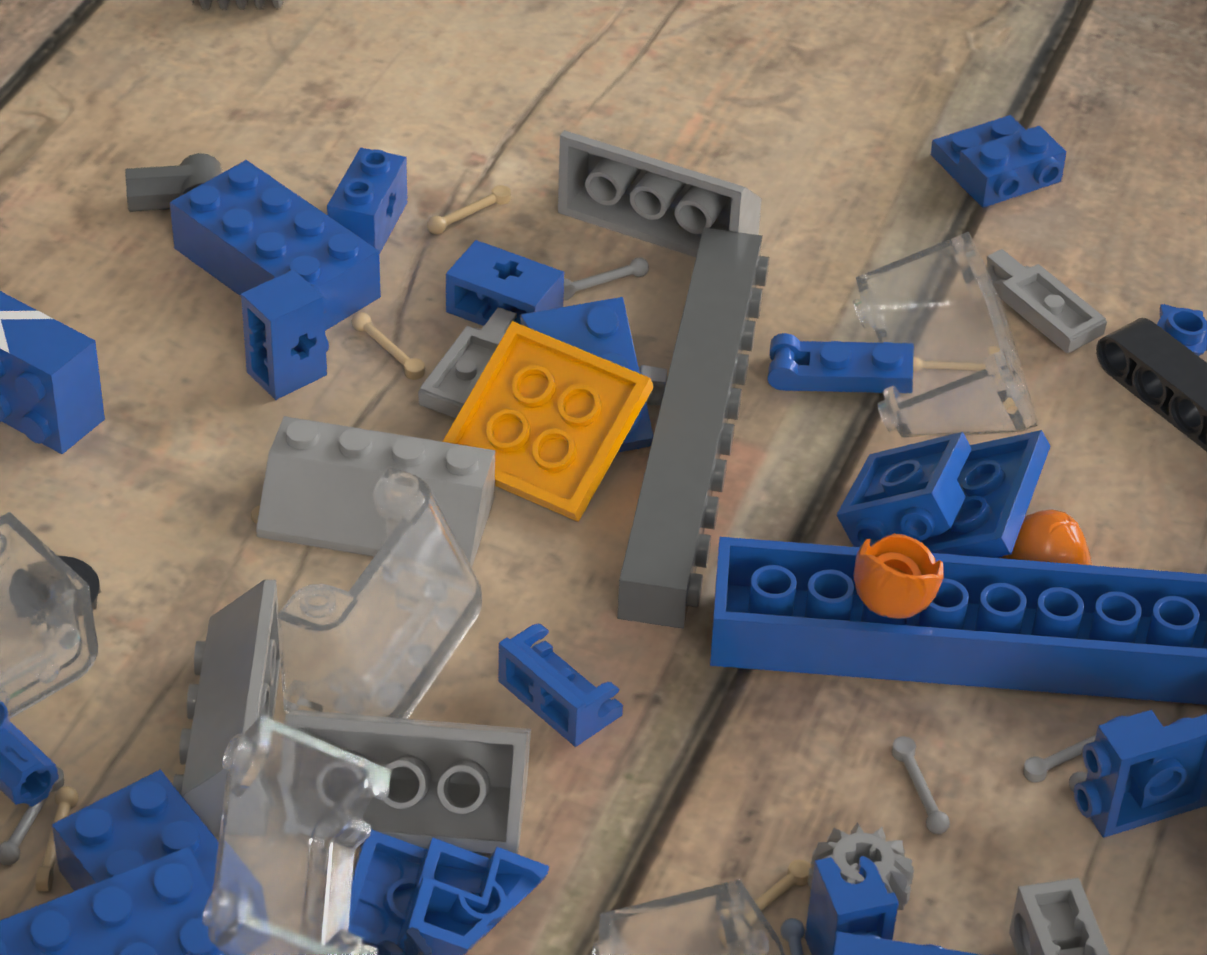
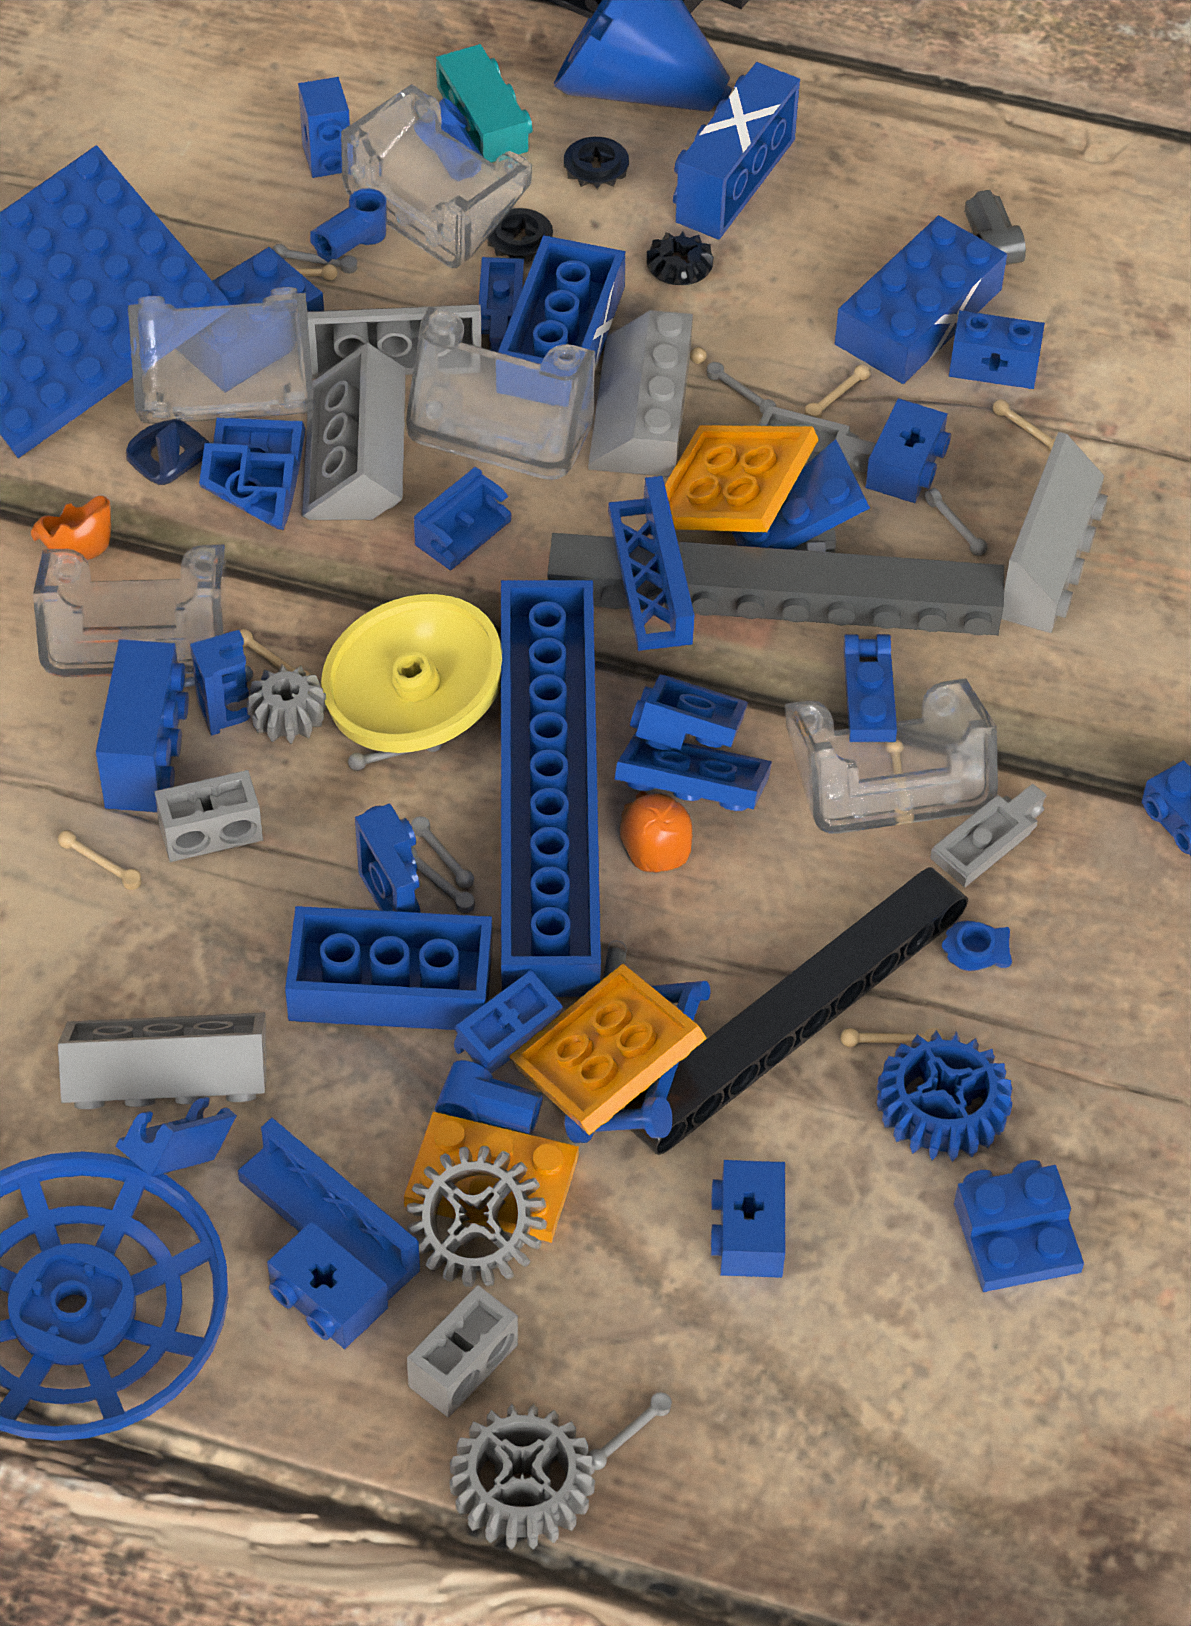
camera: 85 degrees right, 10 degrees up
(121, 460) = (673, 269): none -> black gear
(160, 613) = (498, 294): none -> blue hinge
(226, 534) = (566, 299): none -> blue brick
(285, 333) = (797, 307): blue brick -> none
(403, 402) = (716, 371): none -> light grey hinge
(697, 472) = (666, 560): none -> blue fence
(830, 732) = (413, 673): none -> light yellow dish
(897, 576) = (539, 672): orange hair -> none

